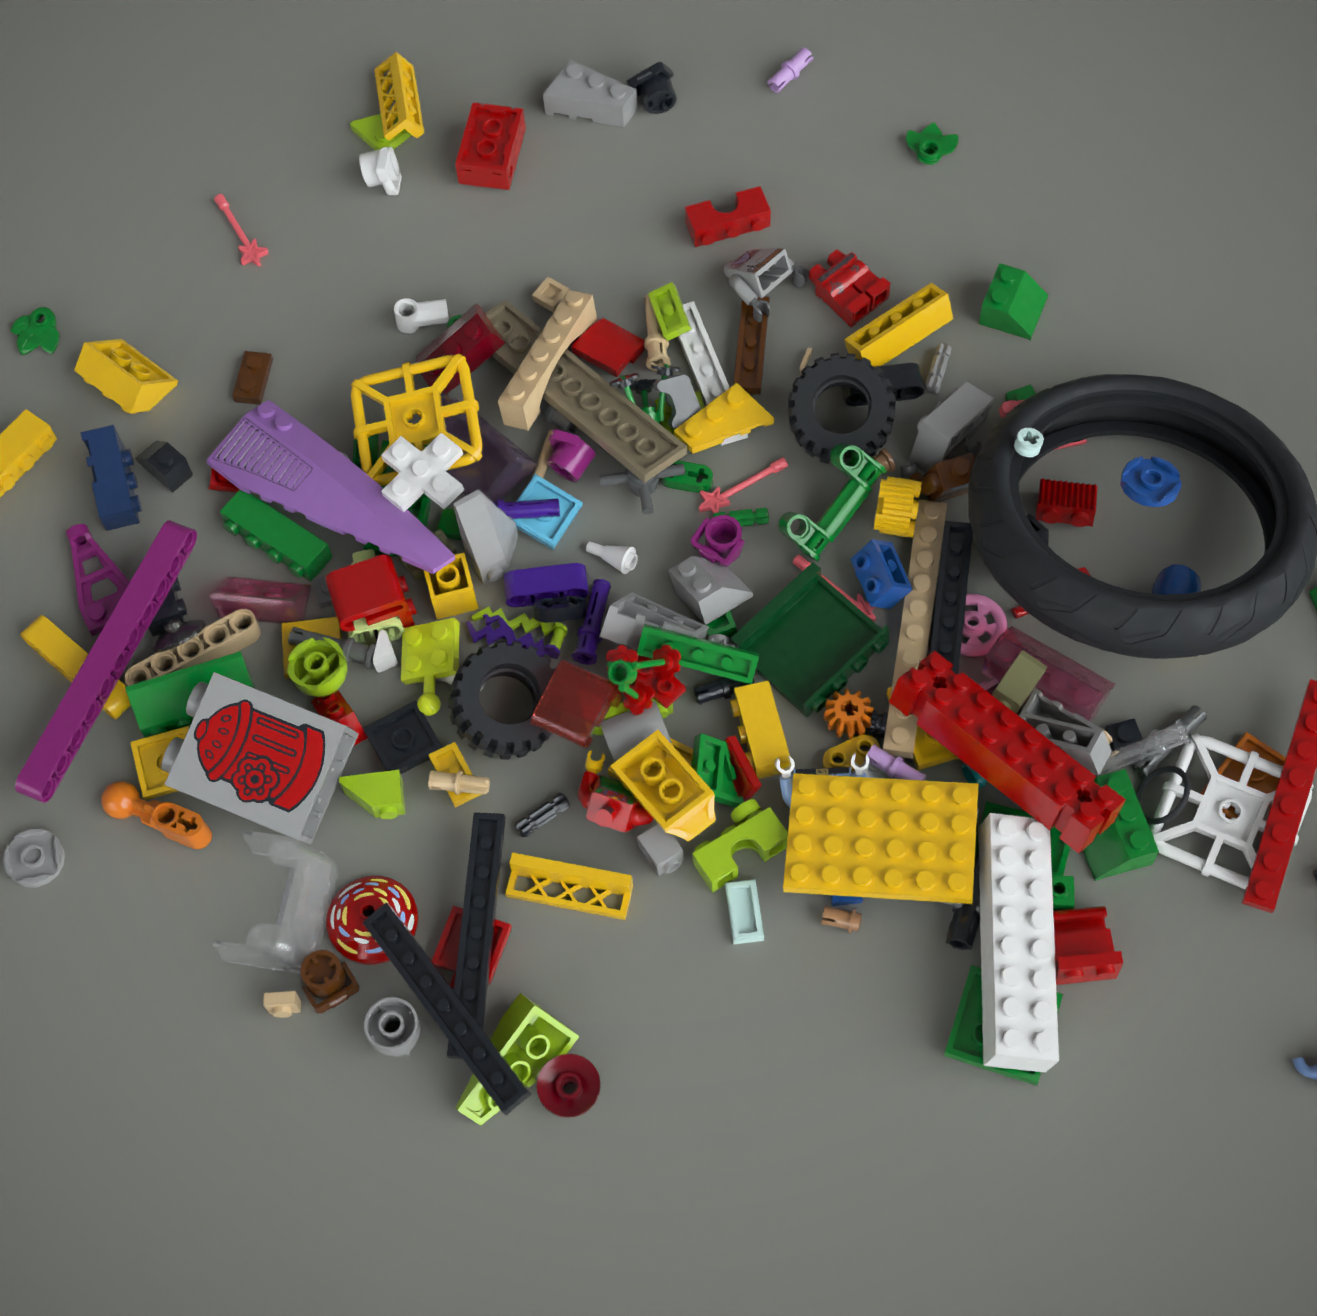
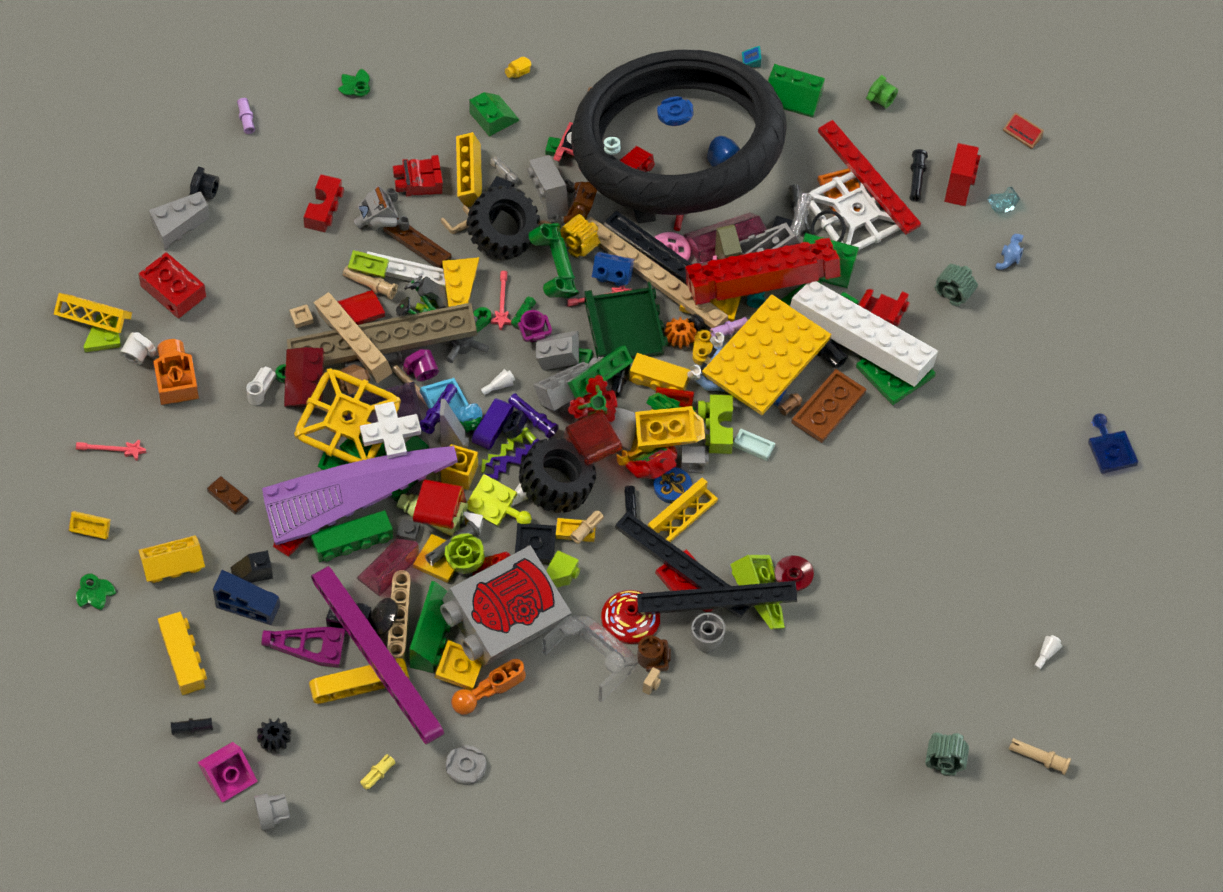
camera: 65 degrees left, 5 degrees down
(117, 272) = (89, 525): none -> yellow plate
(372, 222) = (175, 373): none -> orange brick
(487, 392) = (355, 371): none -> medium nougat brick
(529, 550) = (469, 416): none -> dark azure piece
(607, 848) = (672, 484): none -> tile
(876, 970) = (828, 405): none -> dark orange plate
(1106, 288) = (518, 67): none -> yellow arm
(1208, 1020) = (956, 284): none -> sand green brick

